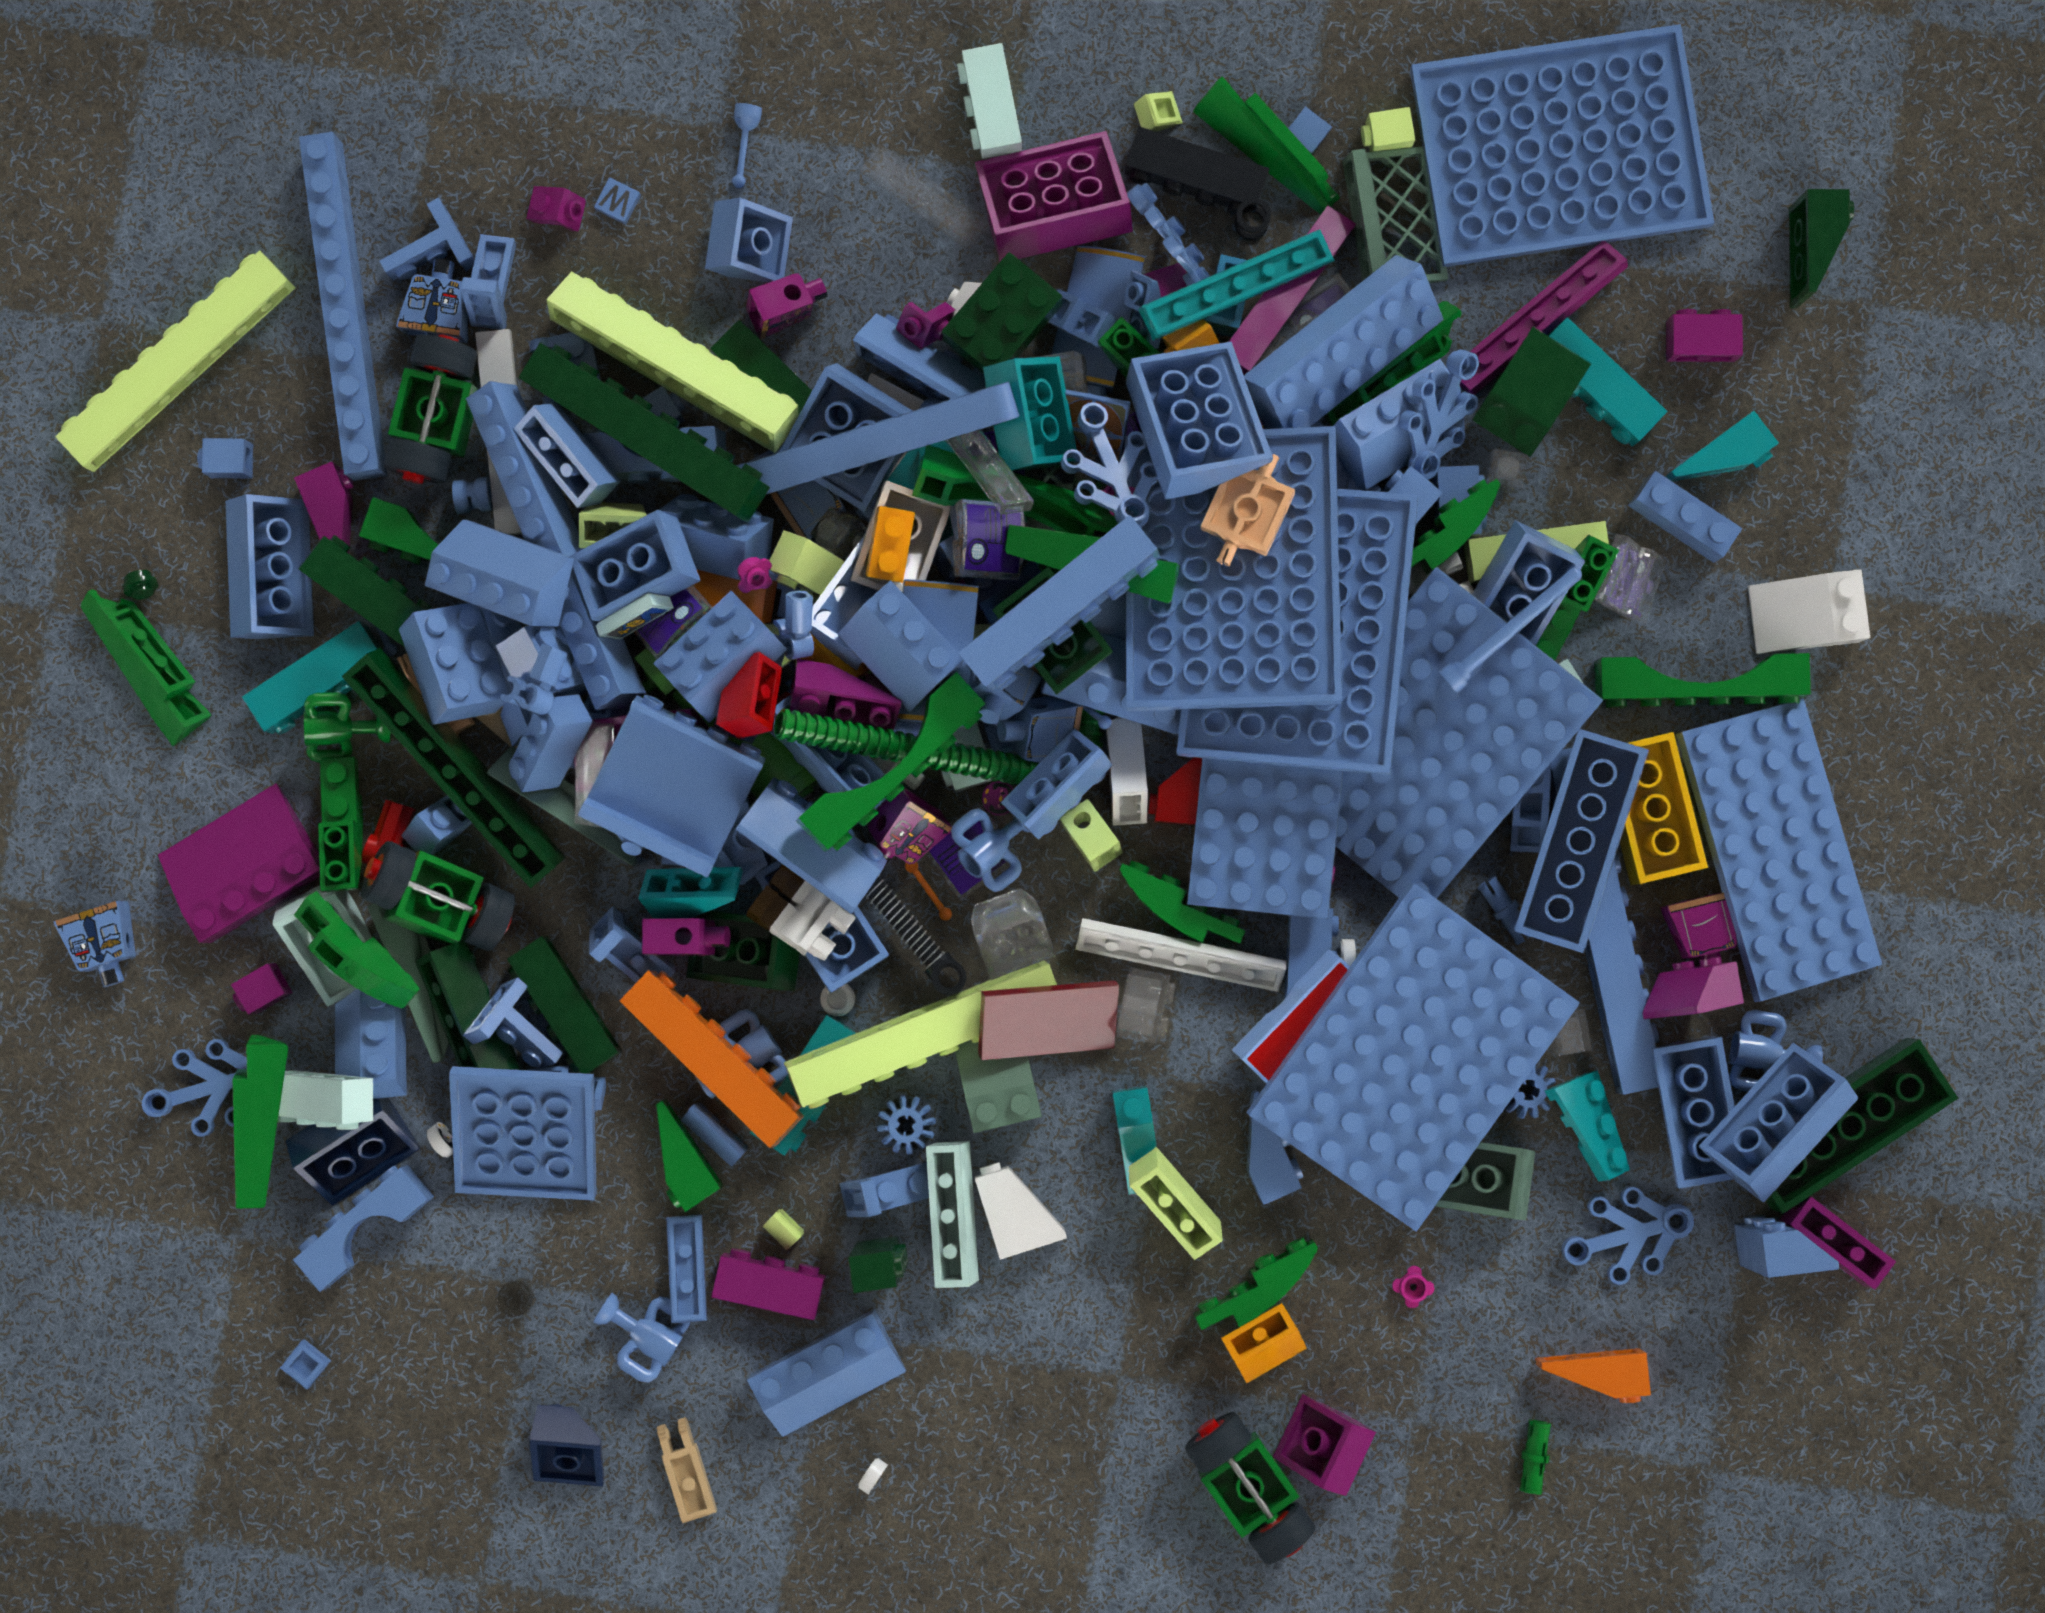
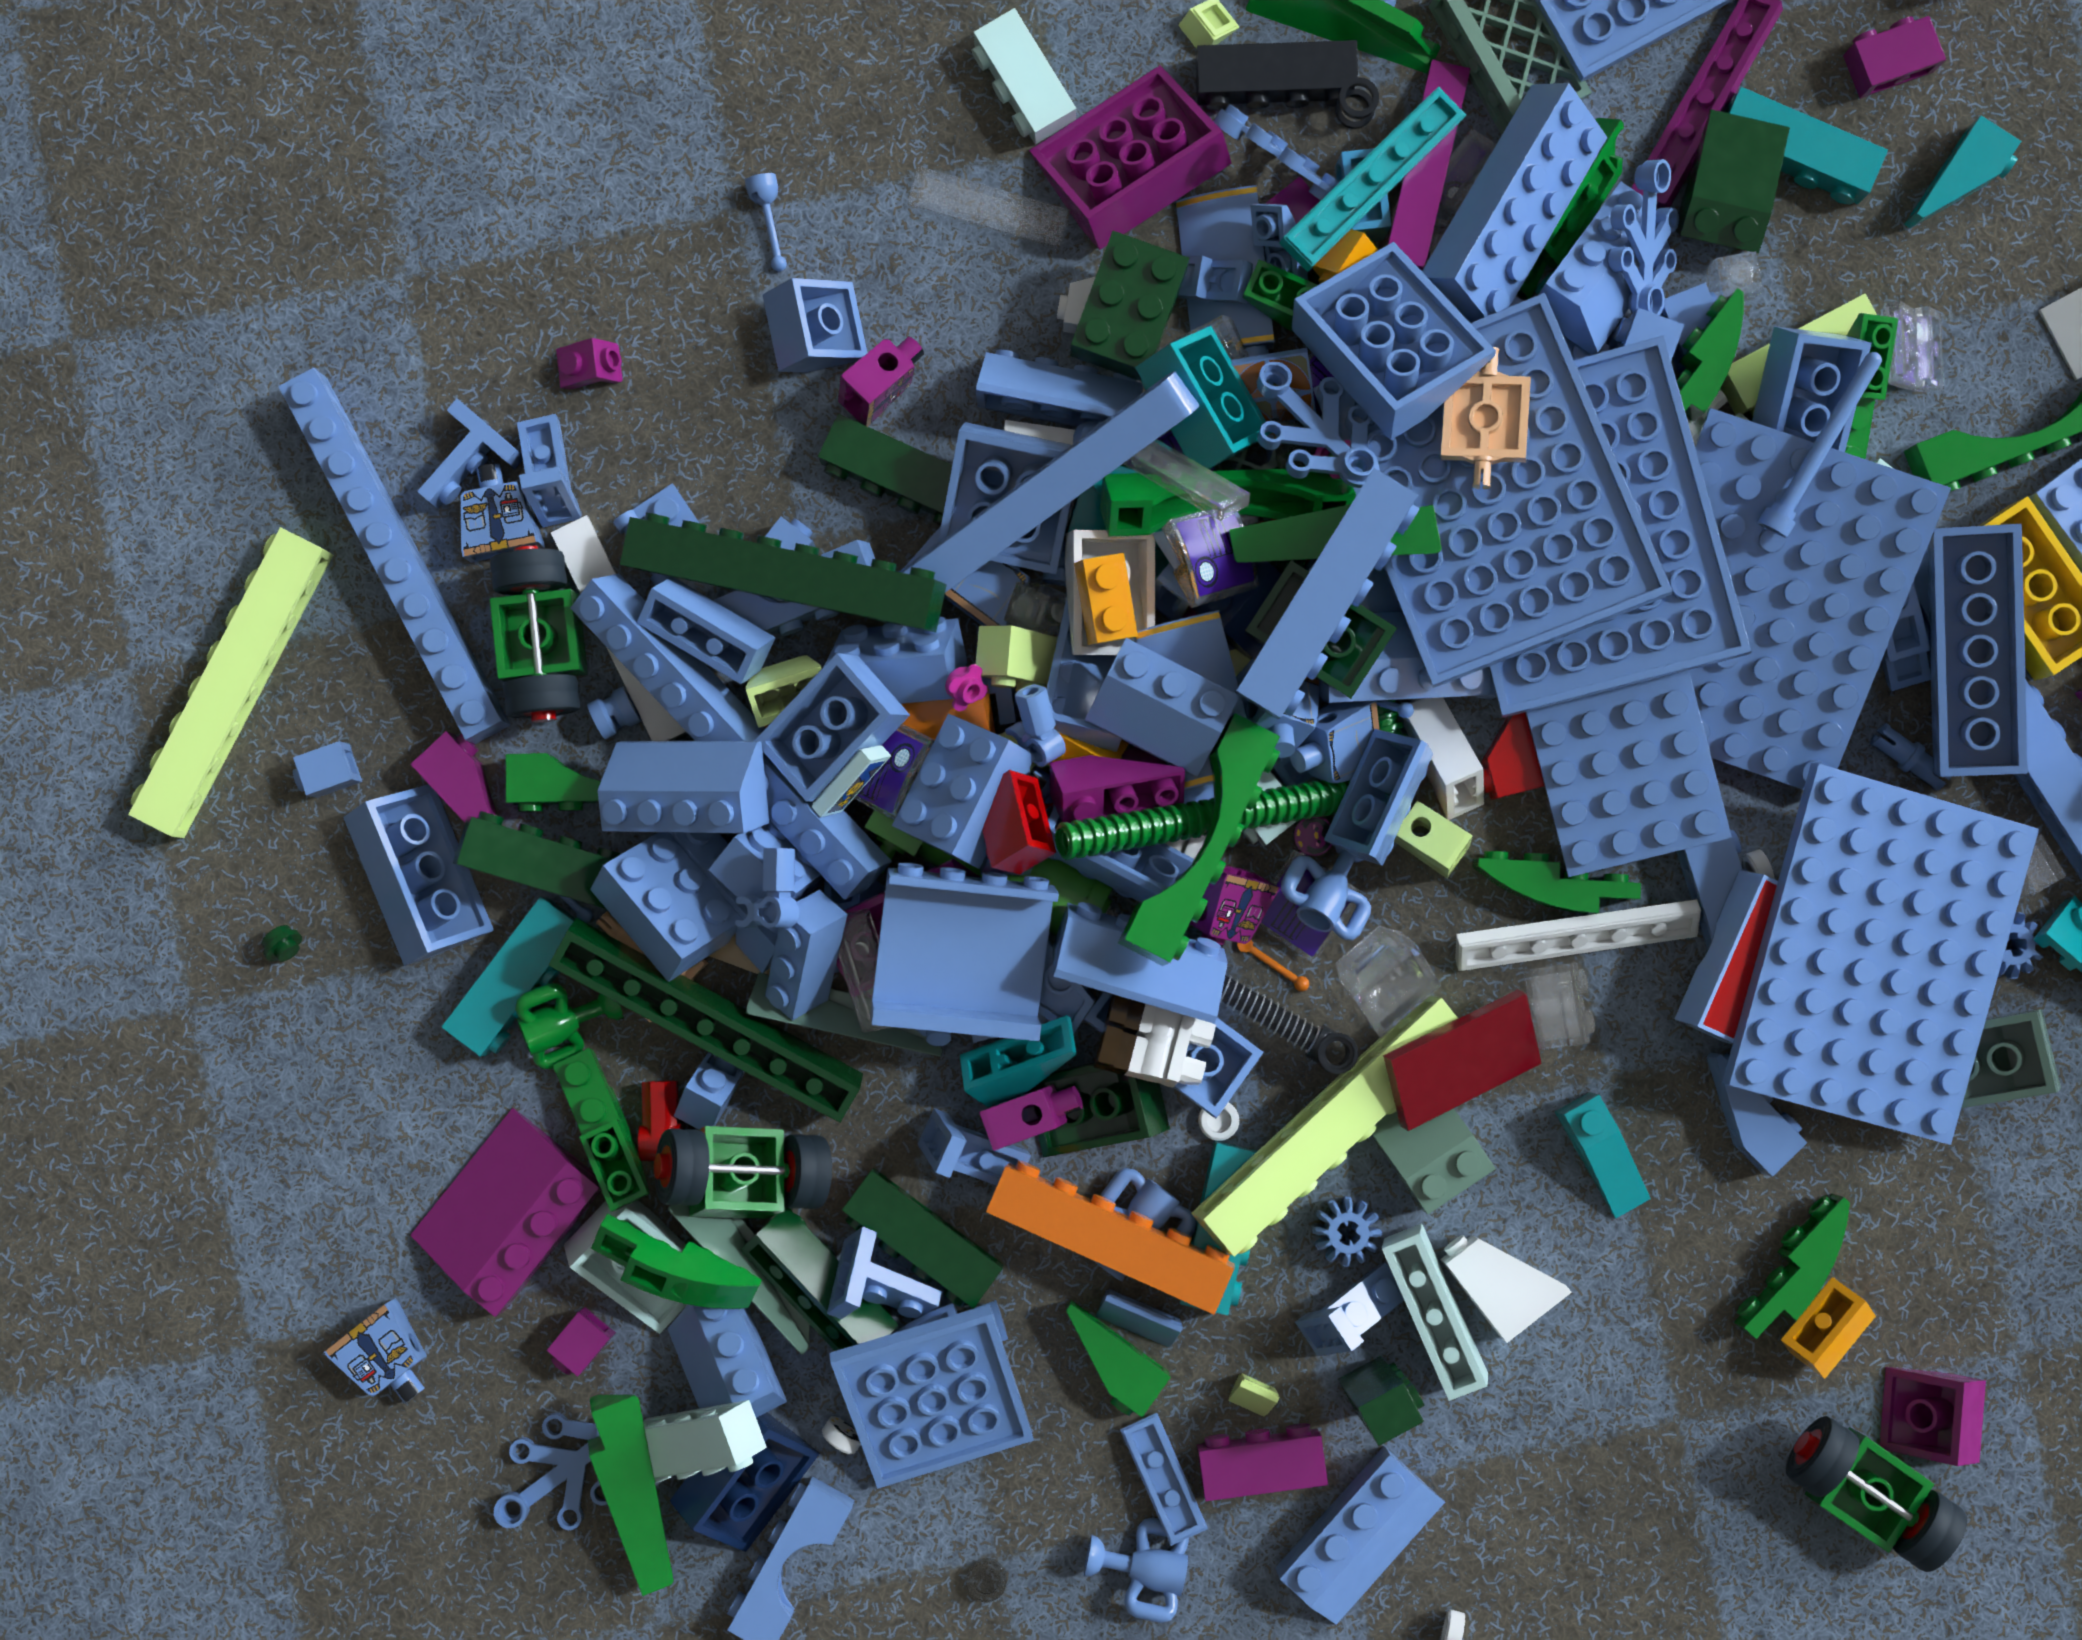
camera: 20 degrees left, 0 degrees up
(147, 665) = (322, 1029): green wedge -> none
(617, 201) = (653, 332): medium blue tile -> none
(673, 361) = (784, 485): yellowish green brick -> none
(924, 327) = (1045, 348): magenta bracket -> none
(1175, 1203) = (1676, 1210): yellowish green brick -> none
(1423, 1287) = (1971, 1214): dark pink plate -> none
(1685, 517) = (1947, 258): medium blue brick -> none

